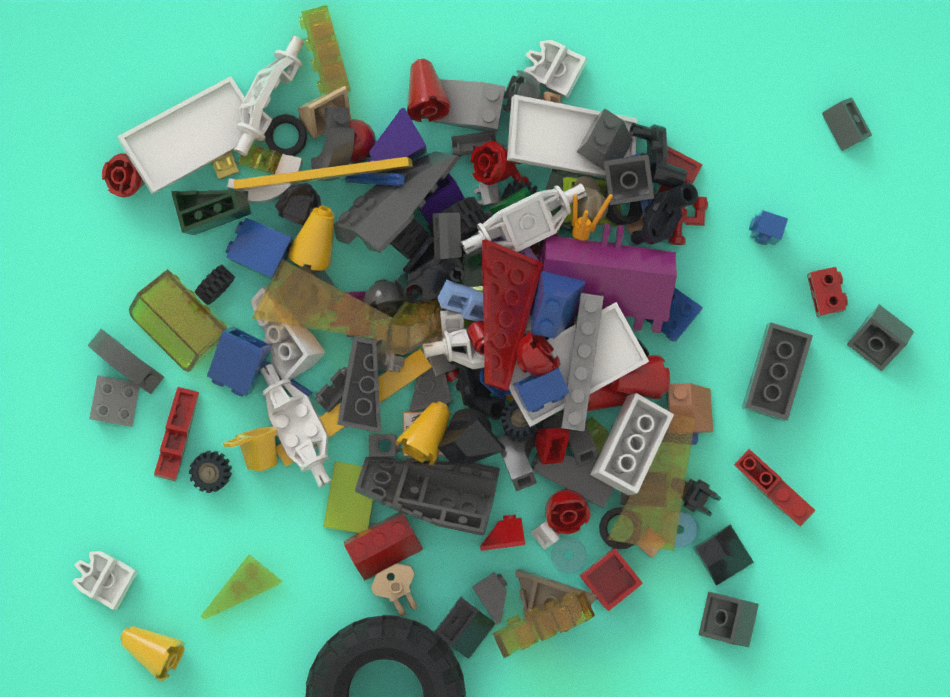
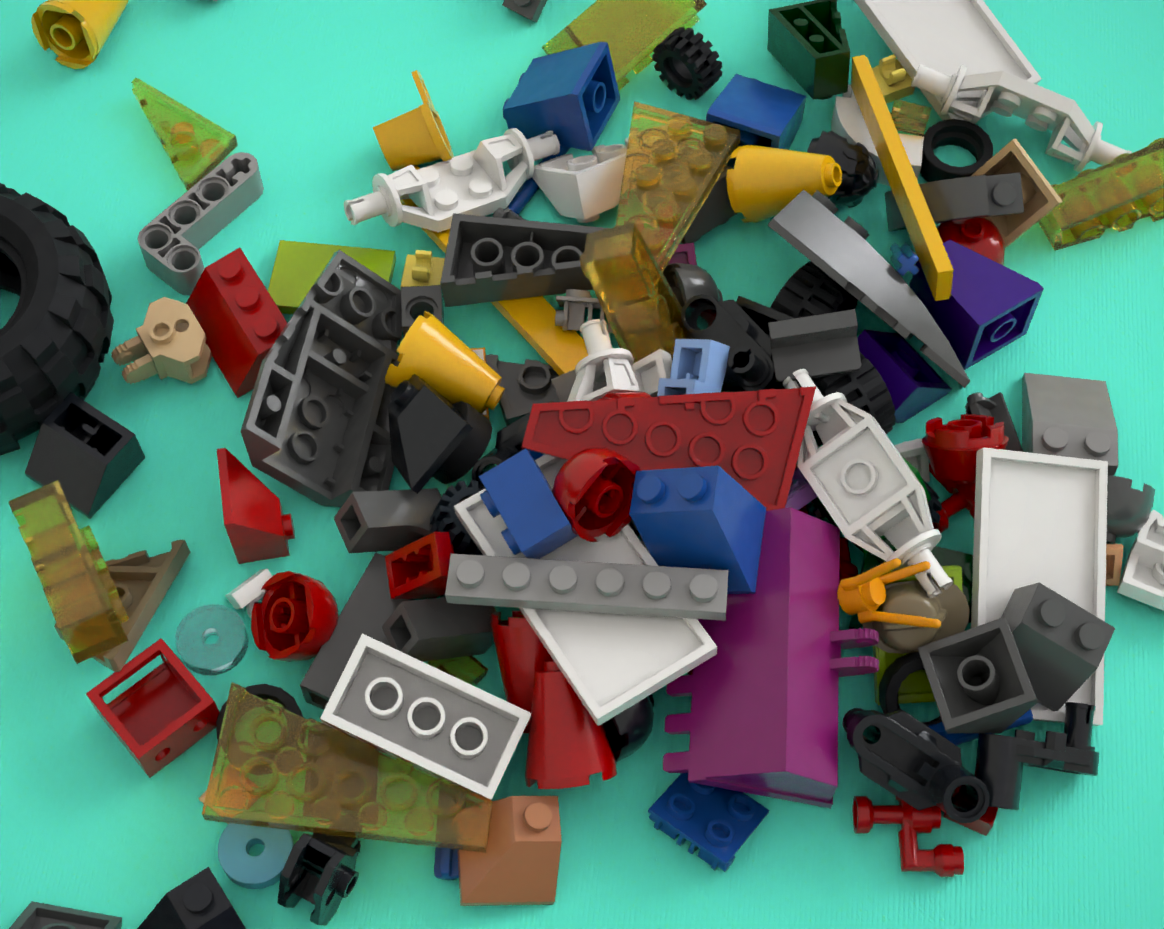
camera: 90 degrees right, 25 degrees down
(176, 434) = (446, 41): red slope -> none
(210, 471) = (375, 79): black wheel -> none
(305, 569) = (176, 235): none -> light grey beam
(350, 445) = (422, 269): none -> light yellow tile
(426, 93) = (1072, 344): red cone -> none
(492, 594) = (137, 504): dark grey slope -> none
(678, 159) = (1019, 831): red tile -> none

